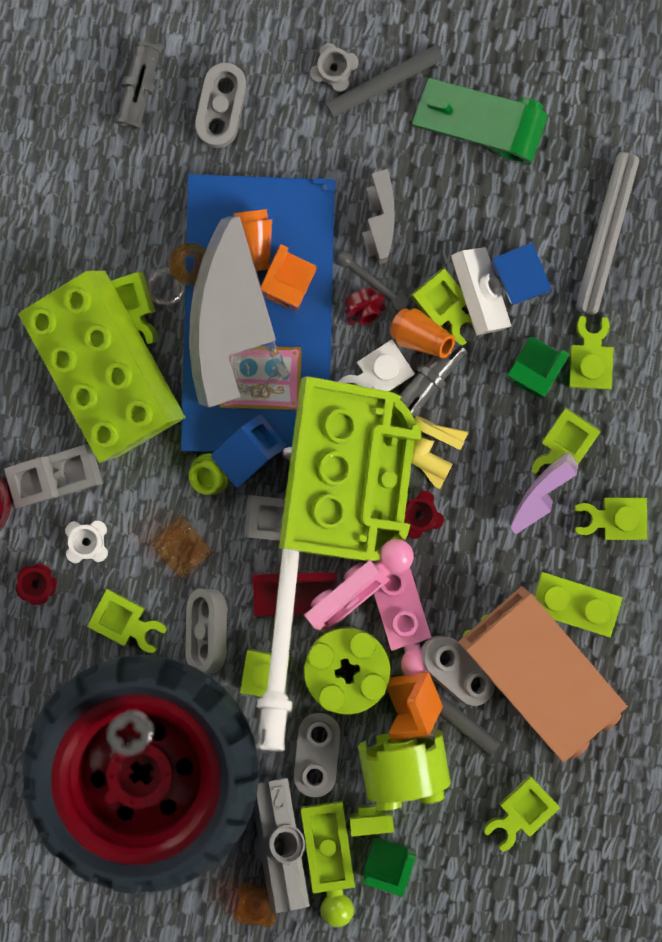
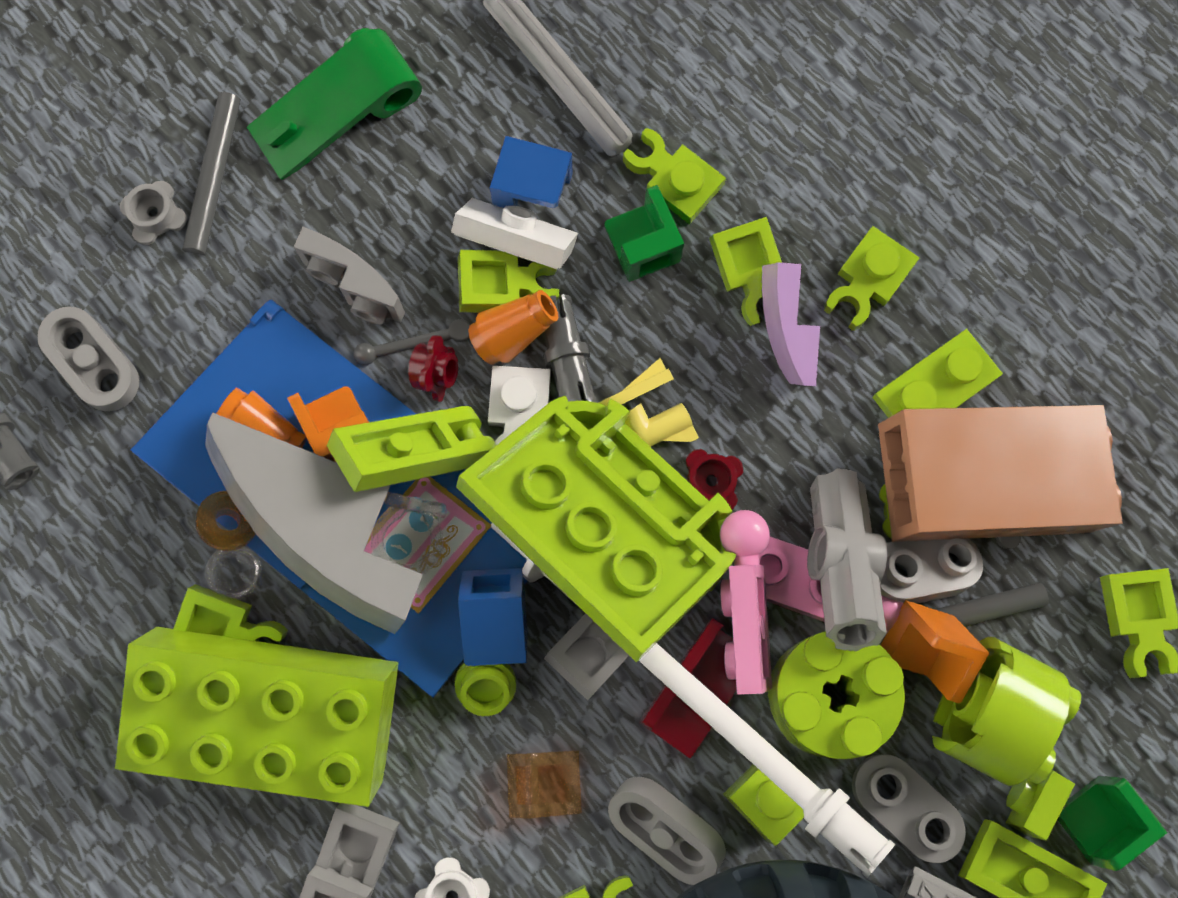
camera: 55 degrees left, 10 degrees down
(306, 335) = (409, 447): none -> lime plate
(425, 622) = (847, 561): none -> light grey piece

